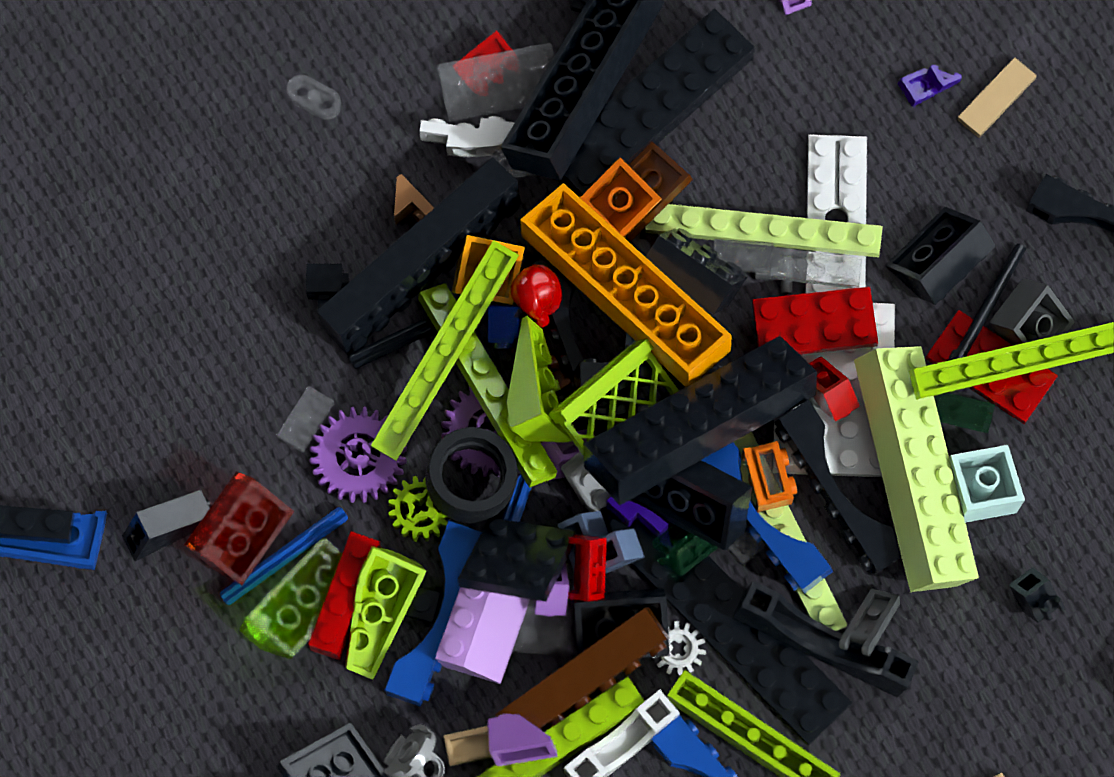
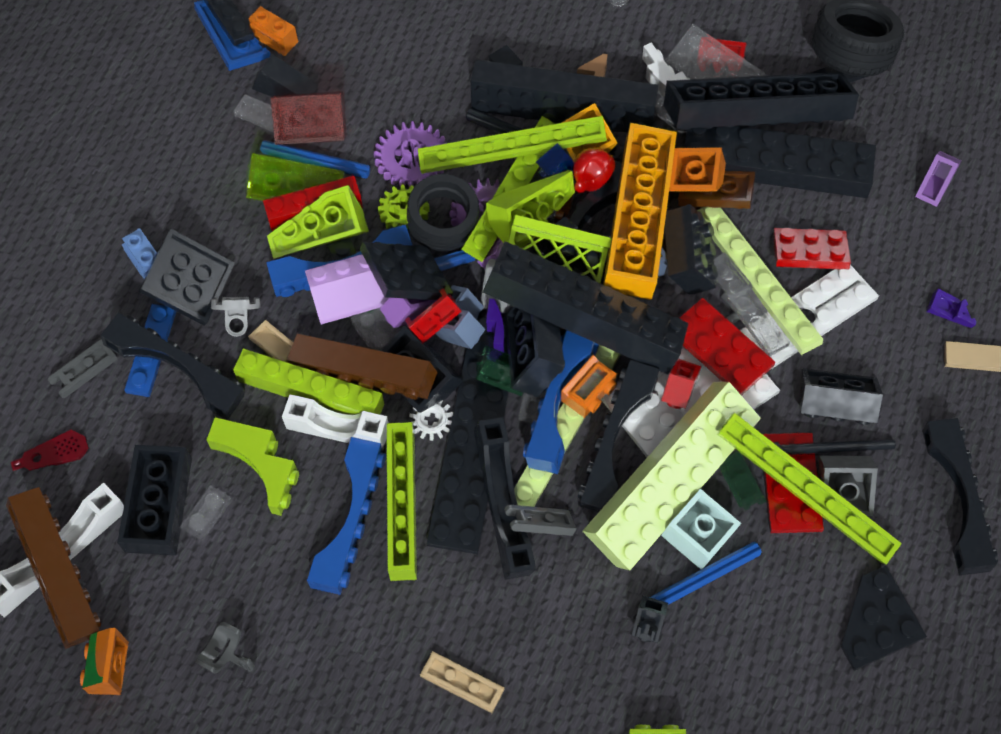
camera: 55 degrees right, 10 degrees down
(83, 489) = (273, 31): none -> orange window
(177, 575) = (255, 112): none -> clear plate
(305, 419) = (410, 111): clear plate -> none
(517, 741) = (282, 350): medium lavender slope -> none
(771, 156) = (811, 248): none -> plate
(1025, 514) = (709, 573): none -> blue axle

